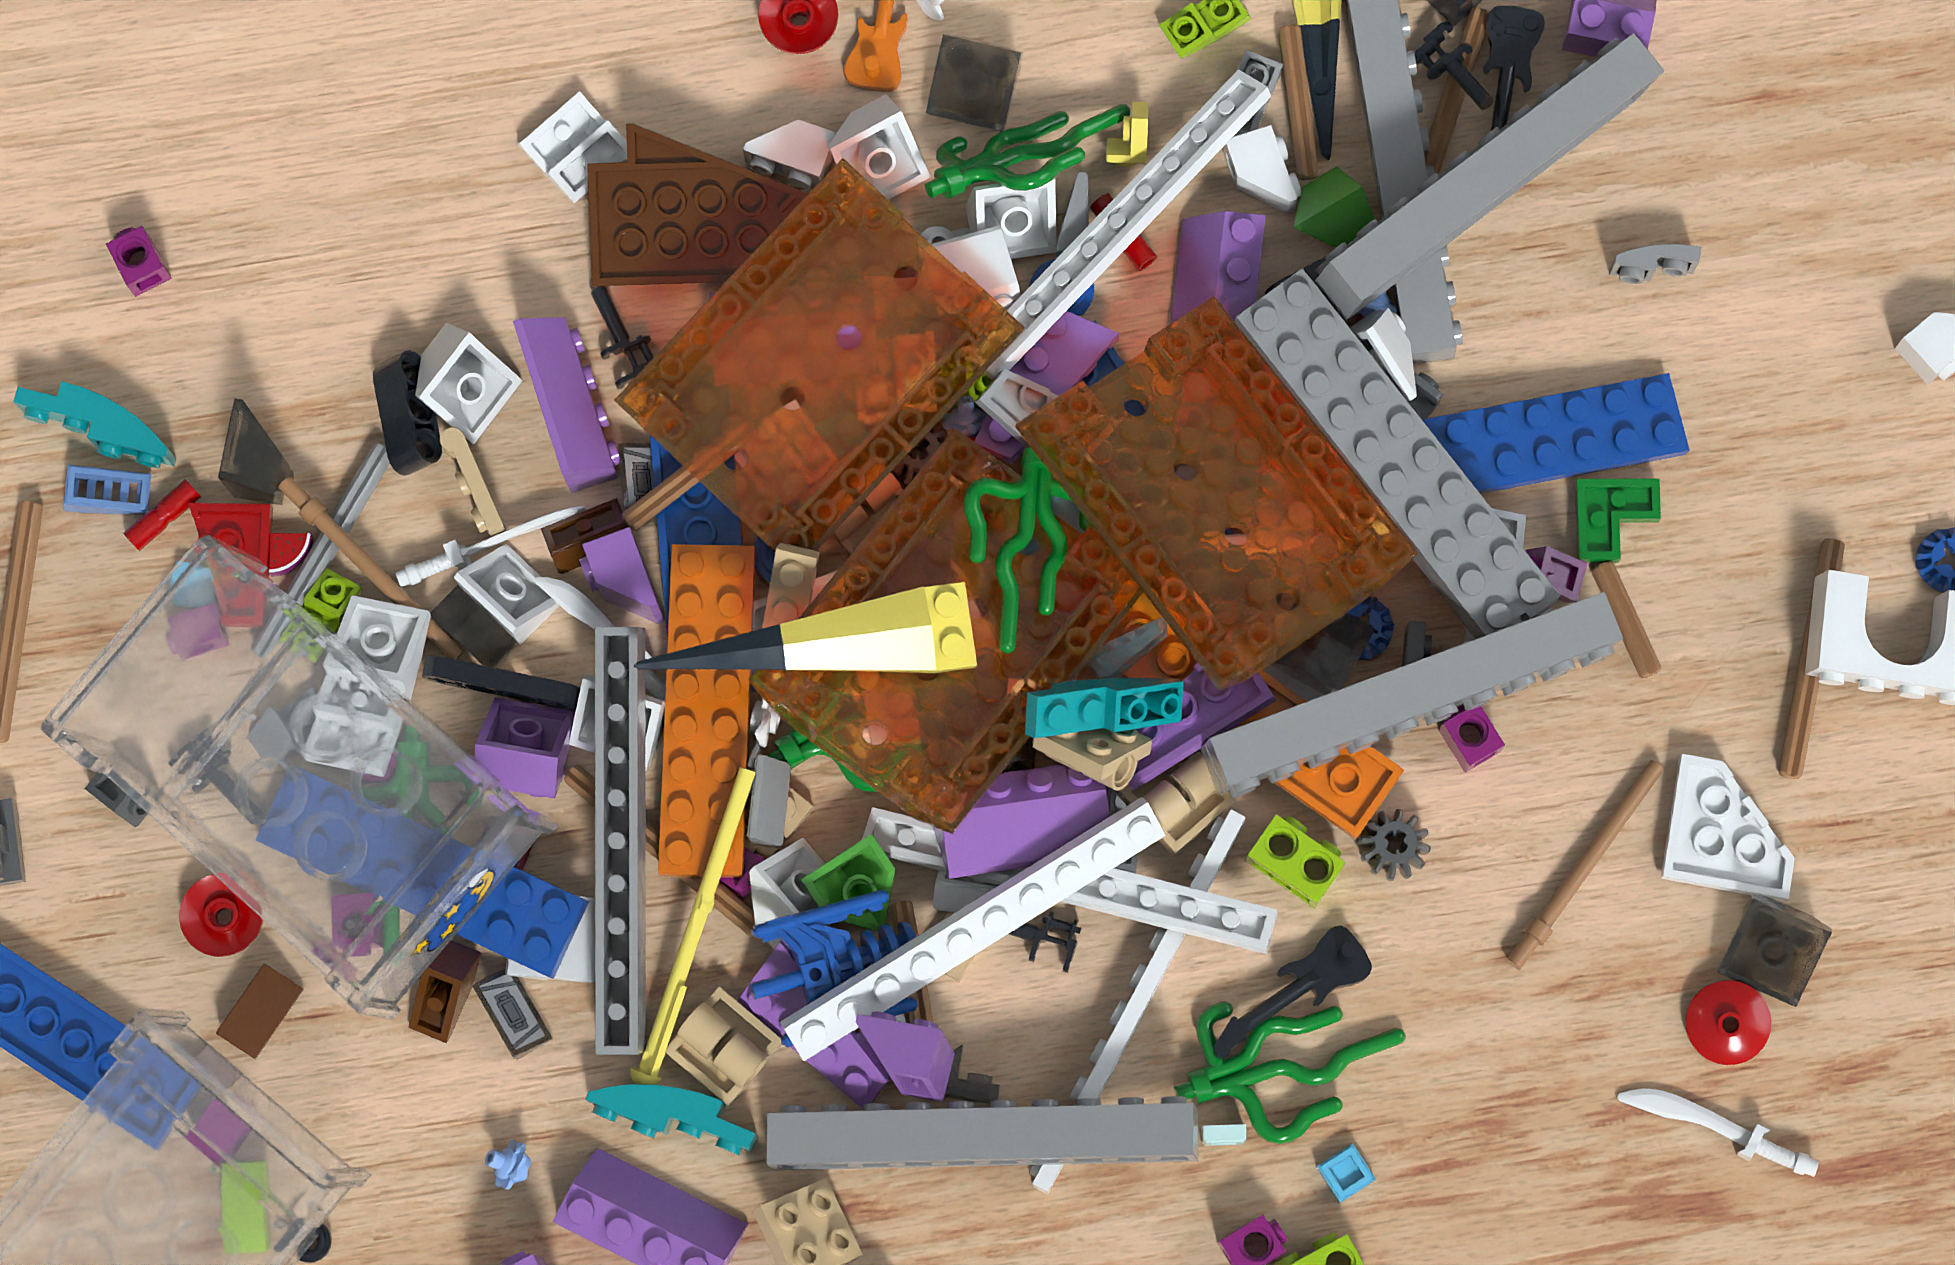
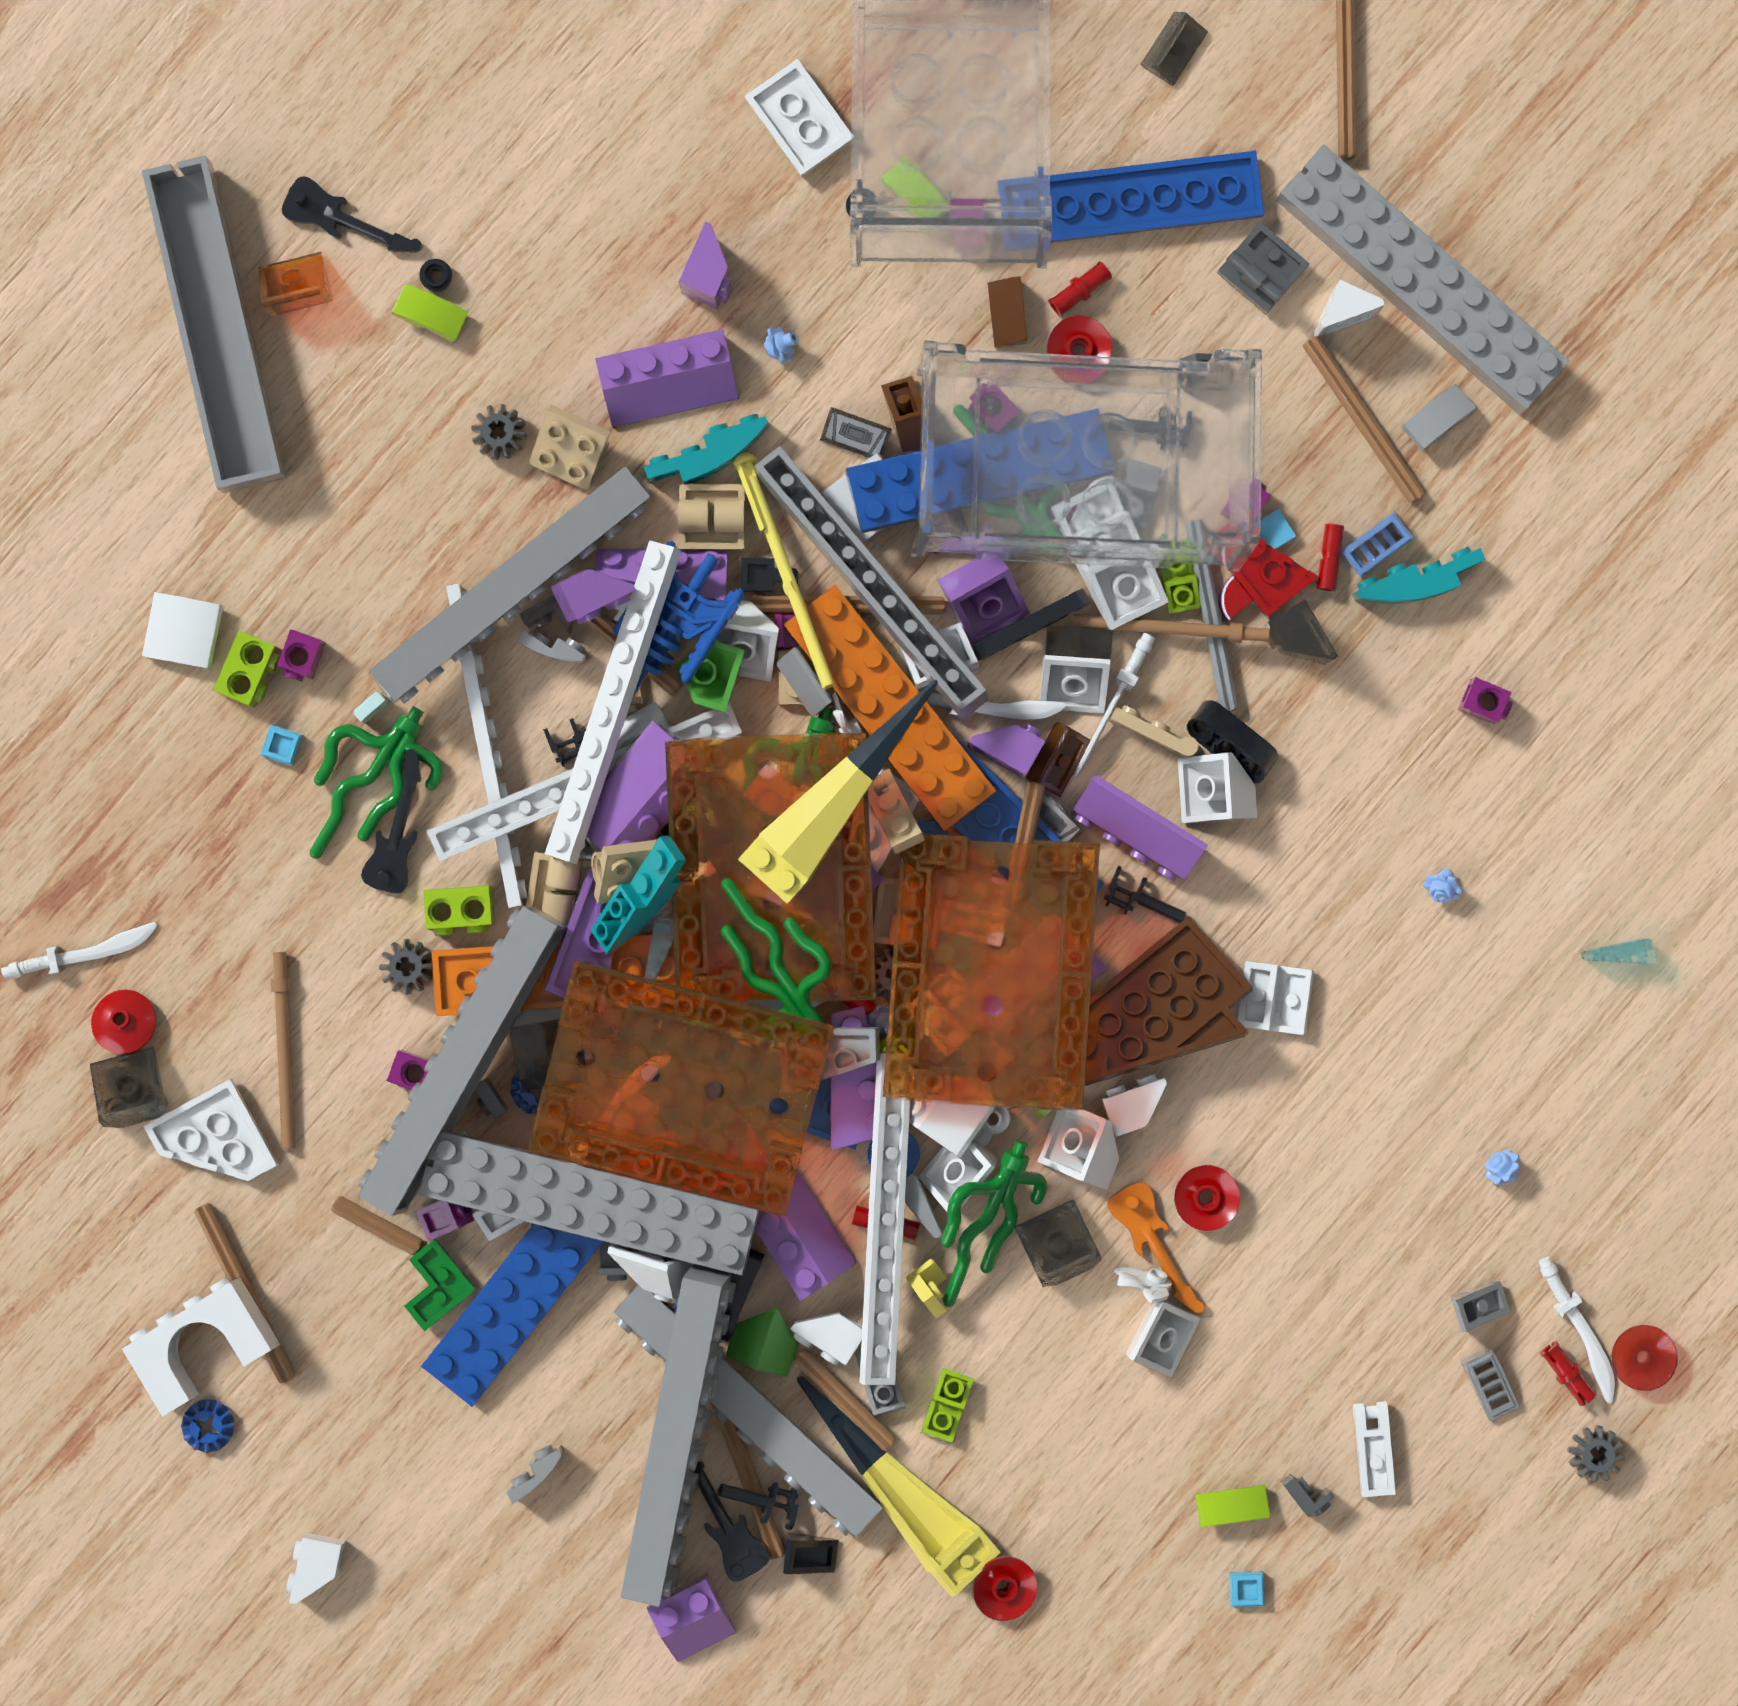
camera: 140 degrees right, 10 degrees up
(169, 974) = (1080, 288): none -> red pin
(330, 122) = (1443, 886): none -> light blue plant
(724, 948) = (760, 575): none -> black plate
(982, 1030) = (561, 651): none -> light grey slope

